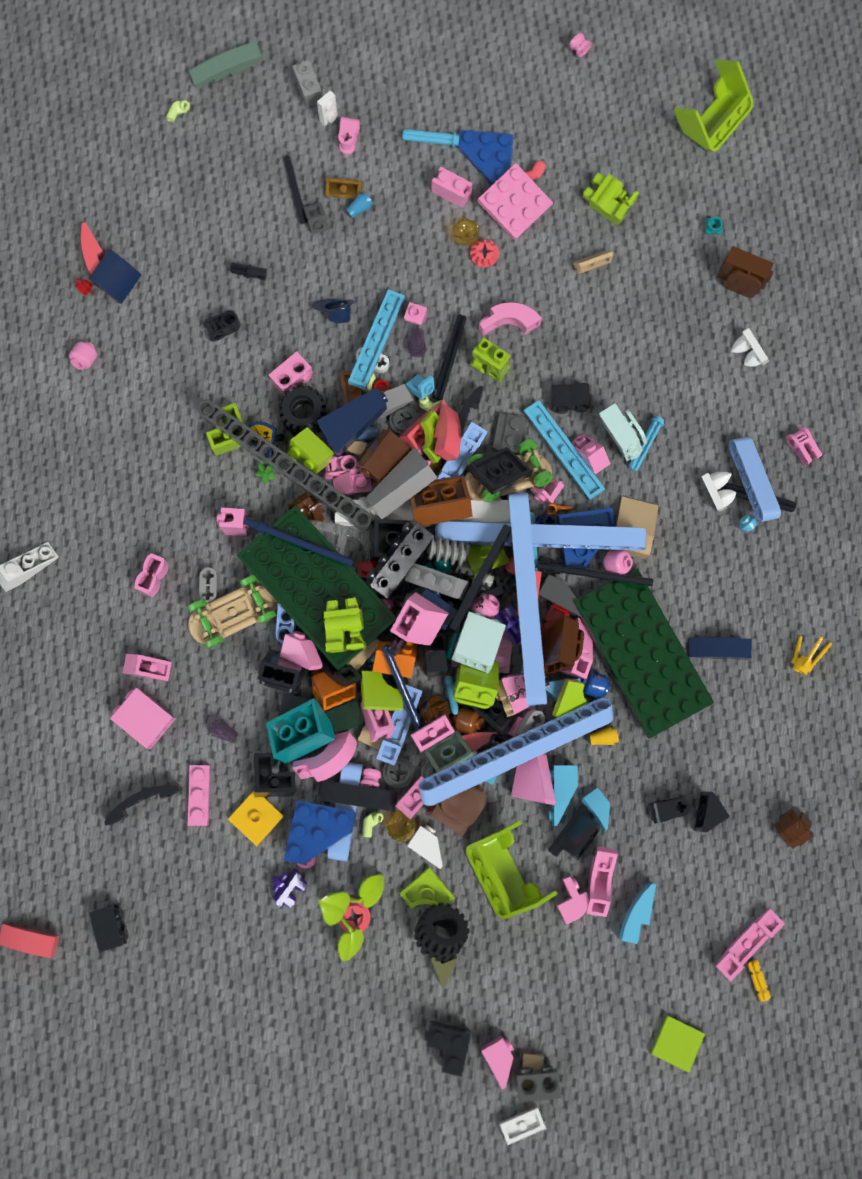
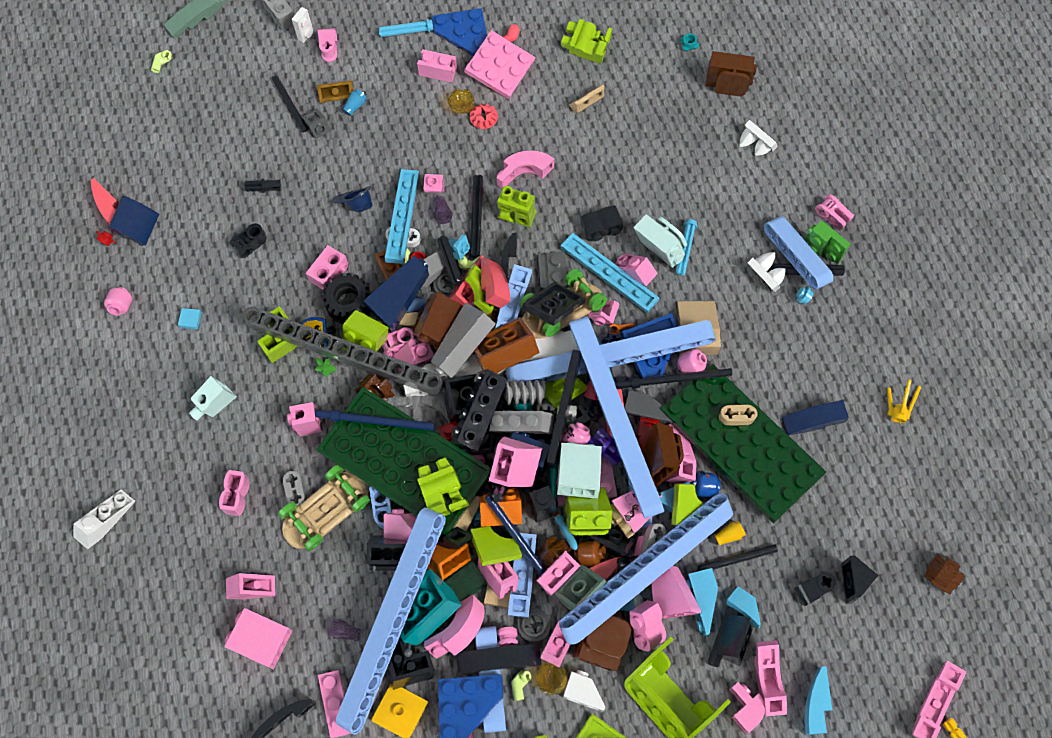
camera: 10 degrees left, 10 degrees down
(147, 390) = (189, 318): none -> medium azure tile
(150, 477) = (211, 398): none -> light aqua torso
(267, 735) = (390, 621): none -> light blue beam
(410, 398) = (449, 260): none -> black axle
(502, 803) = (647, 625): none -> bright pink brick
(605, 761) = (739, 558): none -> black bar
(645, 622) = (738, 417): none -> tan beam
(784, 472) = (827, 241): none -> bright green plate

